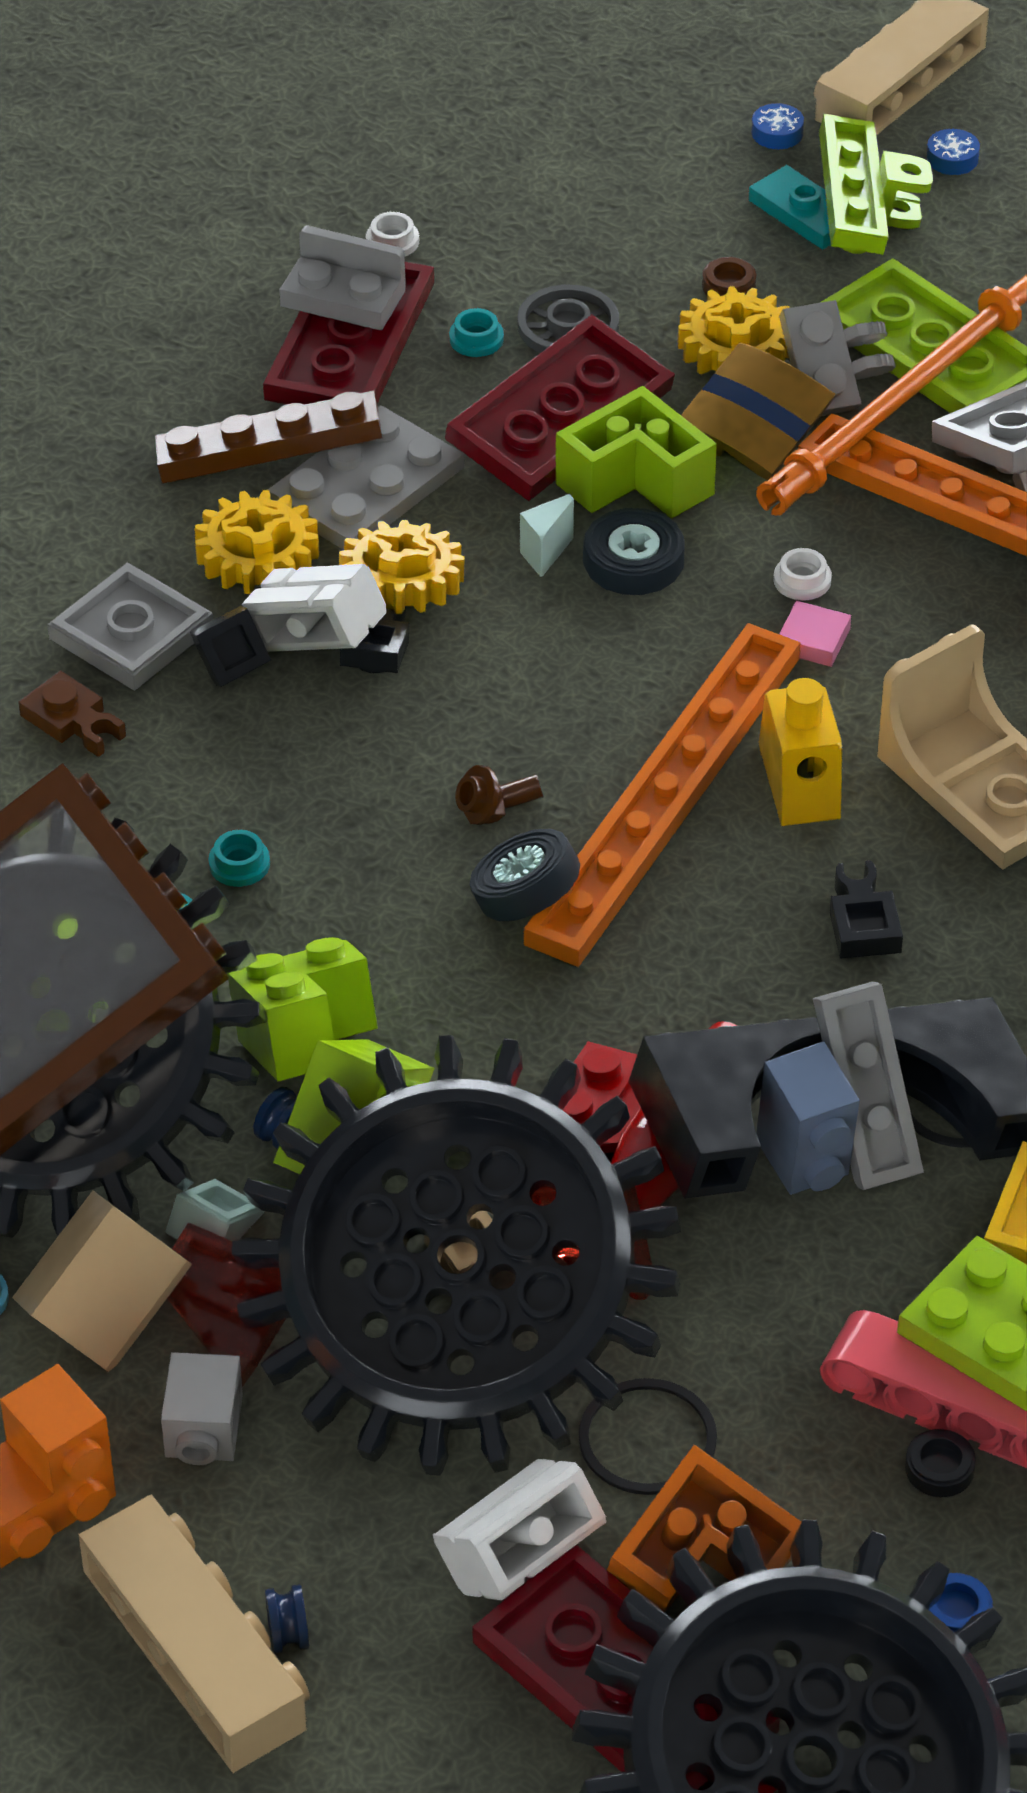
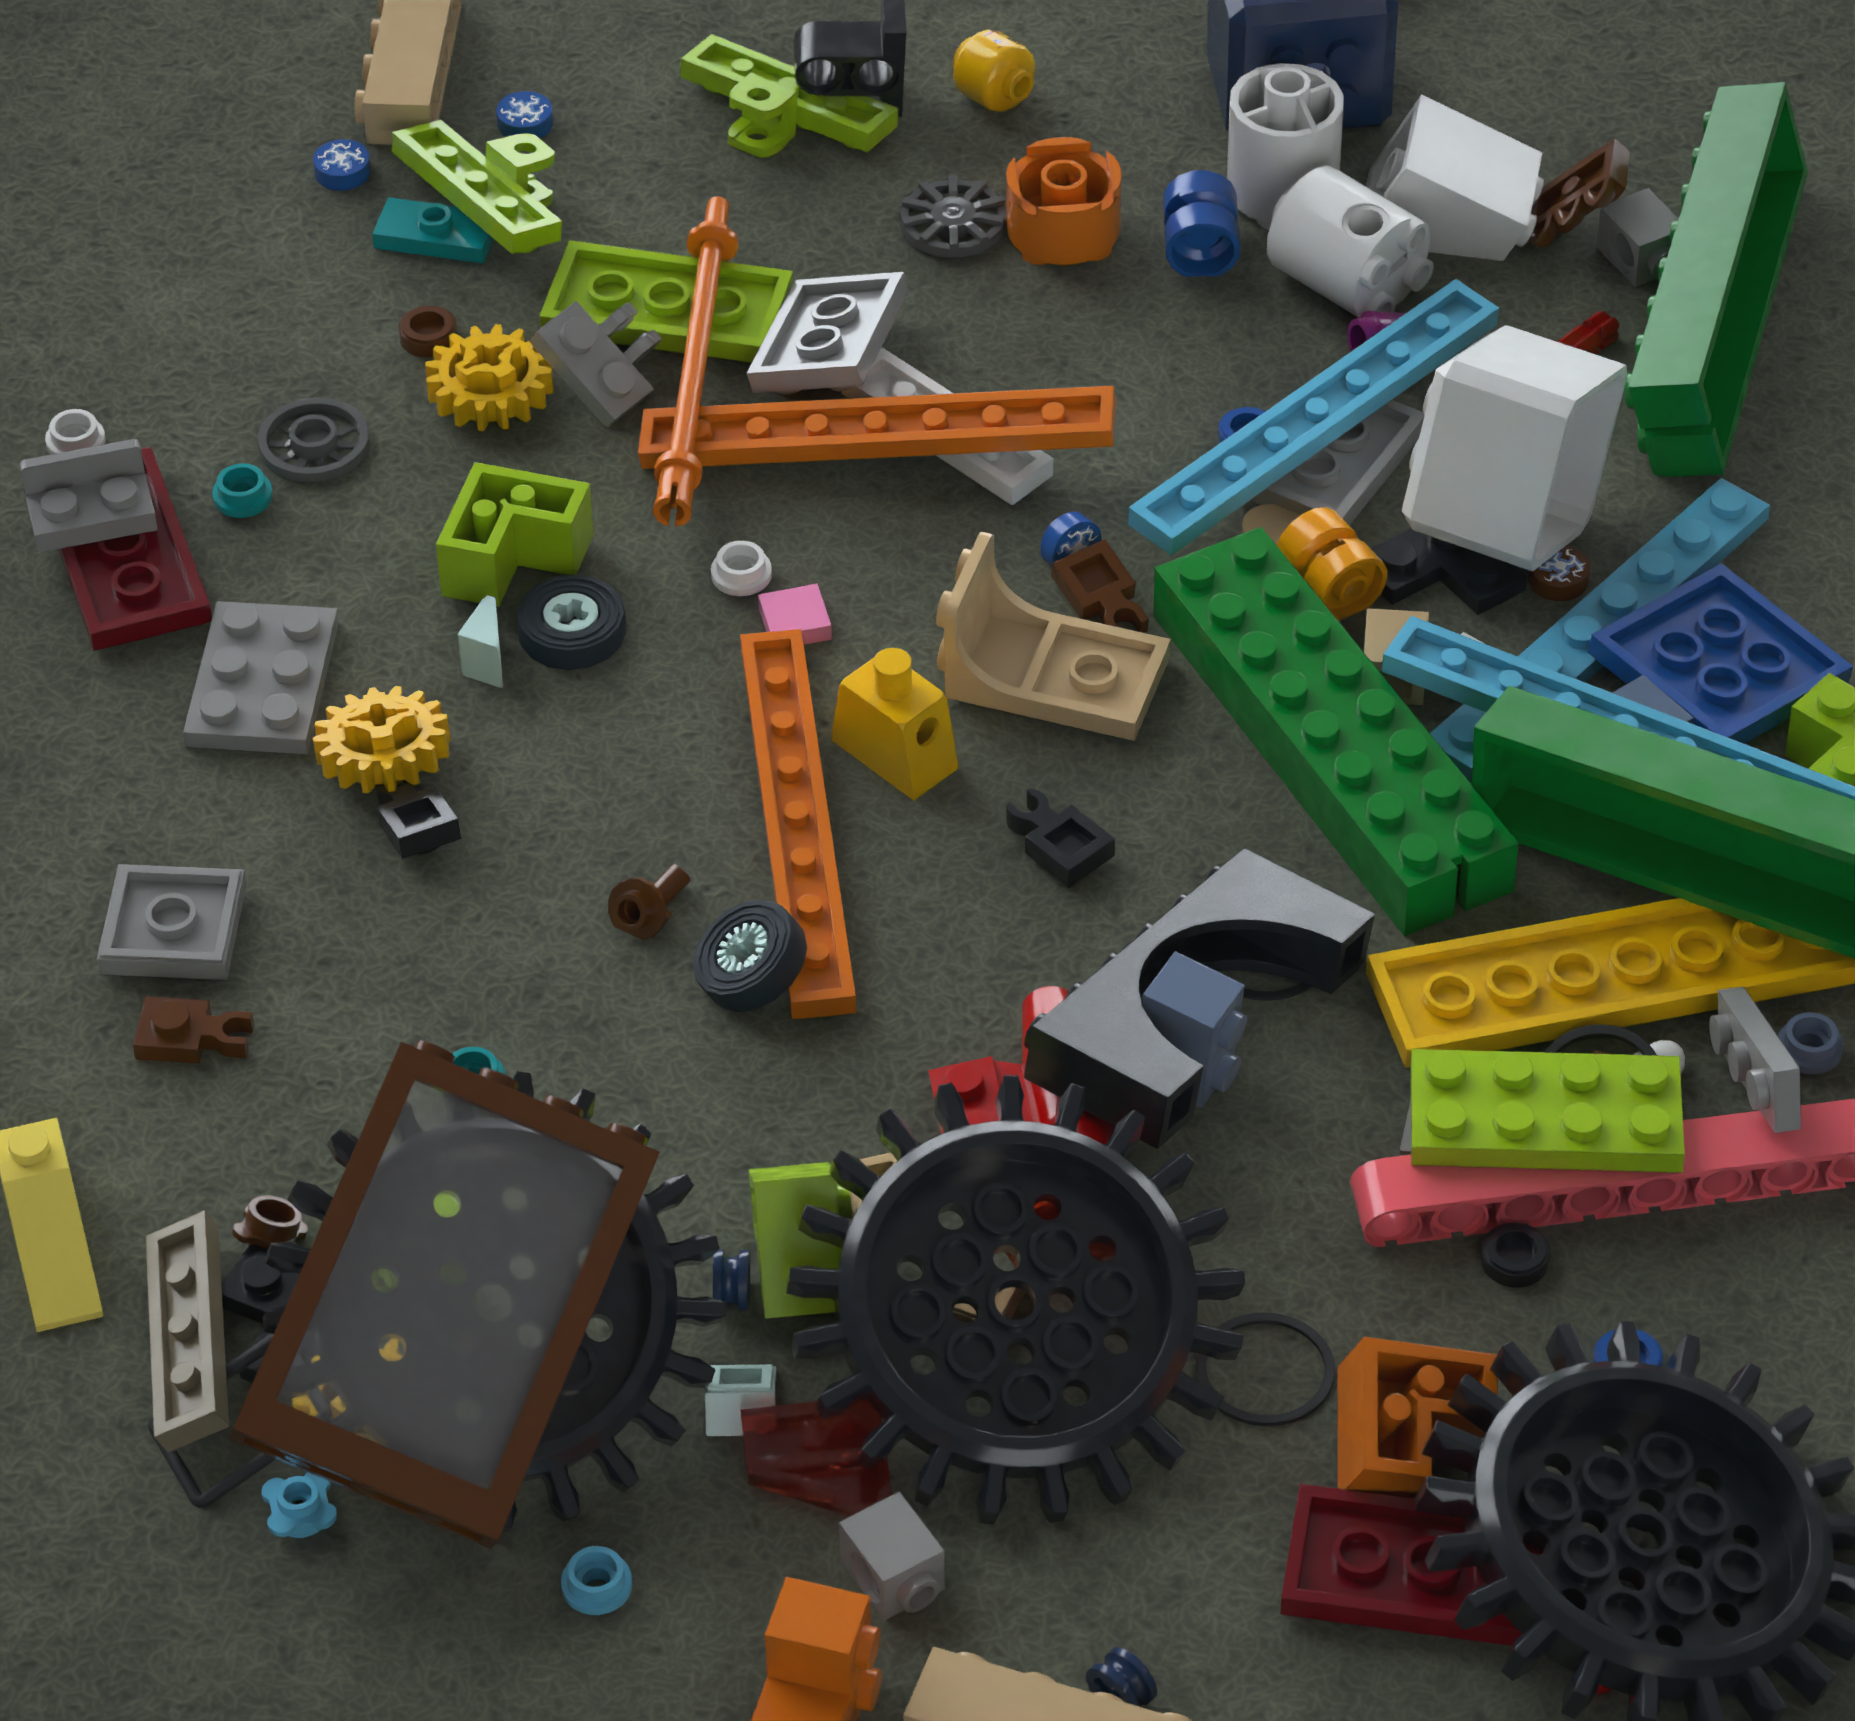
camera: 35 degrees left, 0 degrees up
(101, 1281) = (706, 1500): tan slope -> none
(230, 646) = (290, 891): black tile -> none
(254, 538) = (222, 784): yellow gear -> none
(268, 436) = (142, 682): reddish brown plate -> none
(306, 1000) = (695, 1144): lime brick -> none
(316, 607) = (347, 815): white brick -> none
(518, 420) = (386, 522): dark red plate -> none
(519, 1529) = (1251, 1497): white brick -> none
(758, 408) = (576, 433): pearl gold slope -> none
(863, 1044) = (1190, 925): light grey plate -> none

